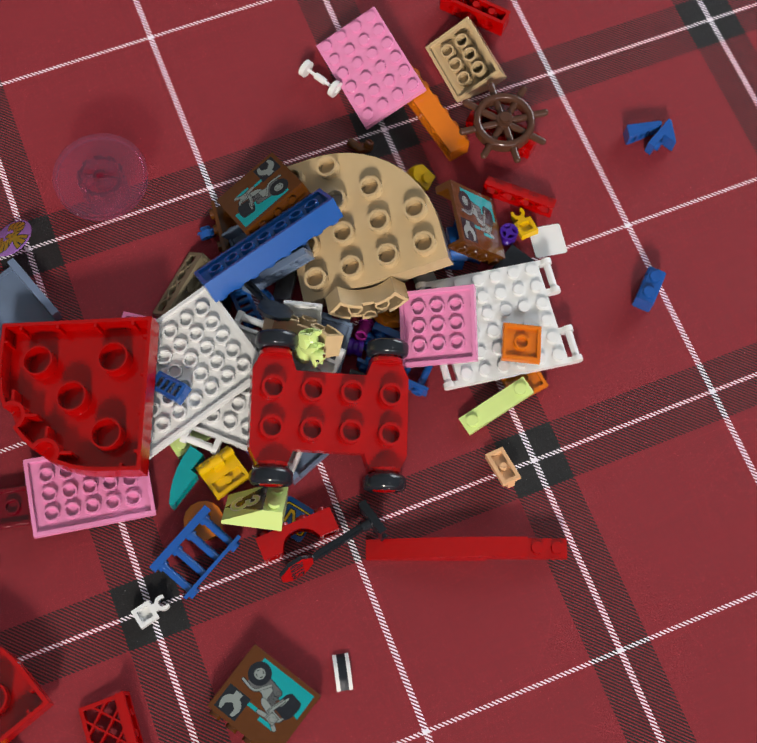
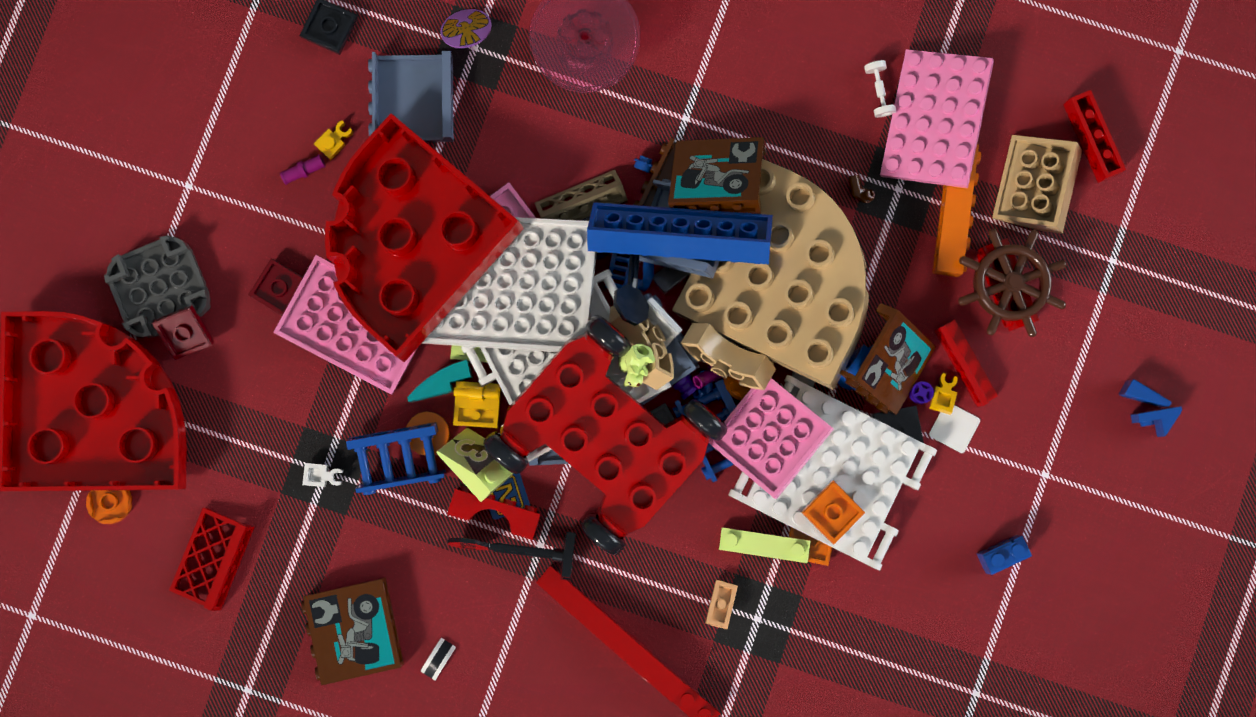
camera: 45 degrees right, 15 degrees up
(180, 395) = (491, 311): blue slope -> none
(421, 176) = (888, 268): yellow plate -> none

